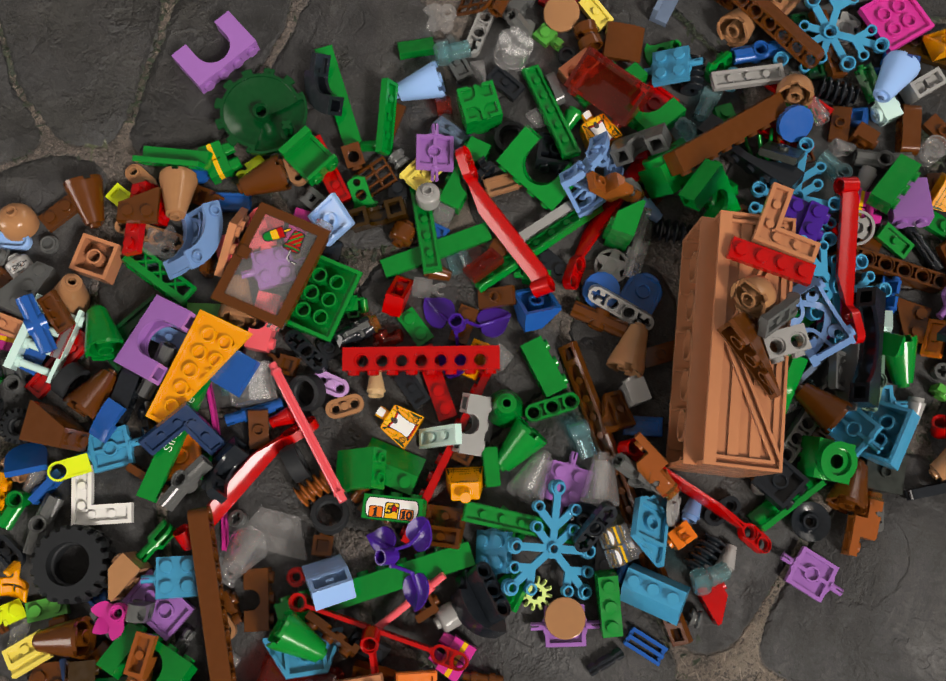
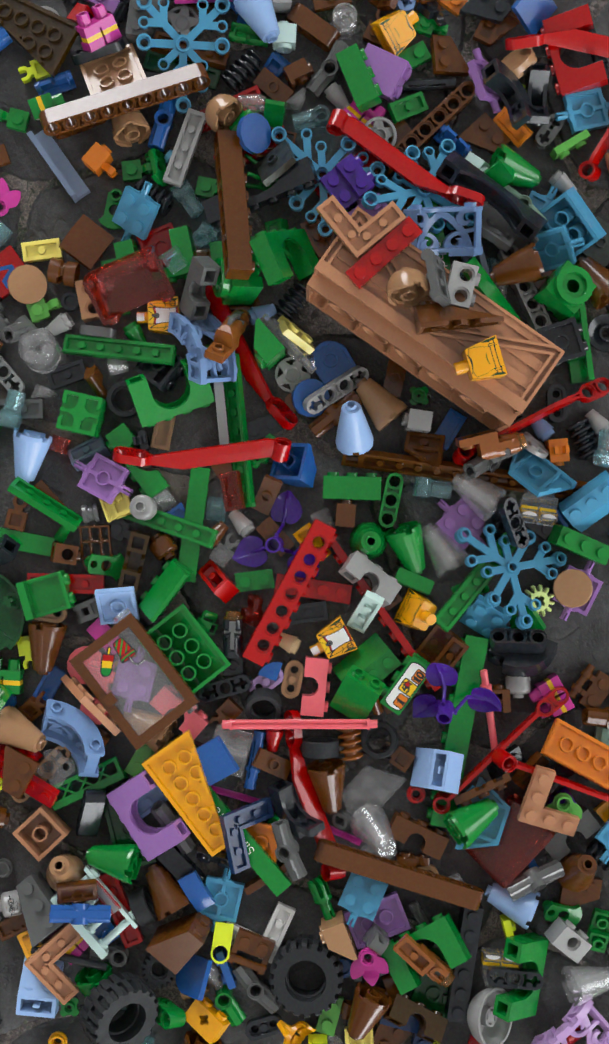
camera: 50 degrees left, 10 degrees up
(80, 498) = (254, 945): none -> reddish brown plate
(134, 291) = (90, 812): none -> black beam
(265, 488) = (328, 782): none -> reddish brown cone
(342, 382) = (271, 670): none -> blue tile
(362, 103) = (16, 517): none -> reddish brown plate
(365, 425) = (314, 703): none -> coral arch
(366, 253) = (164, 589): none -> green slope
(459, 289) = (241, 523): none -> light grey cone
(514, 104) = (94, 379): none -> reddish brown piece
(516, 374) = (345, 514): none -> reddish brown brick
(544, 56) = (60, 324): none -> light grey cone
(595, 338) = (353, 430): none -> light blue cone
(648, 247) = (296, 335): none -> light yellow plate
(651, 113) = (174, 259): none -> clear light blue slope
(662, 385) = (422, 391): none -> green plate
(695, 19) = (99, 159): none -> orange brick
(705, 49) = (134, 170): none -> green plate
(729, 399) = (482, 361): none -> light orange torso
(822, 132) = (274, 112): none -> green slope

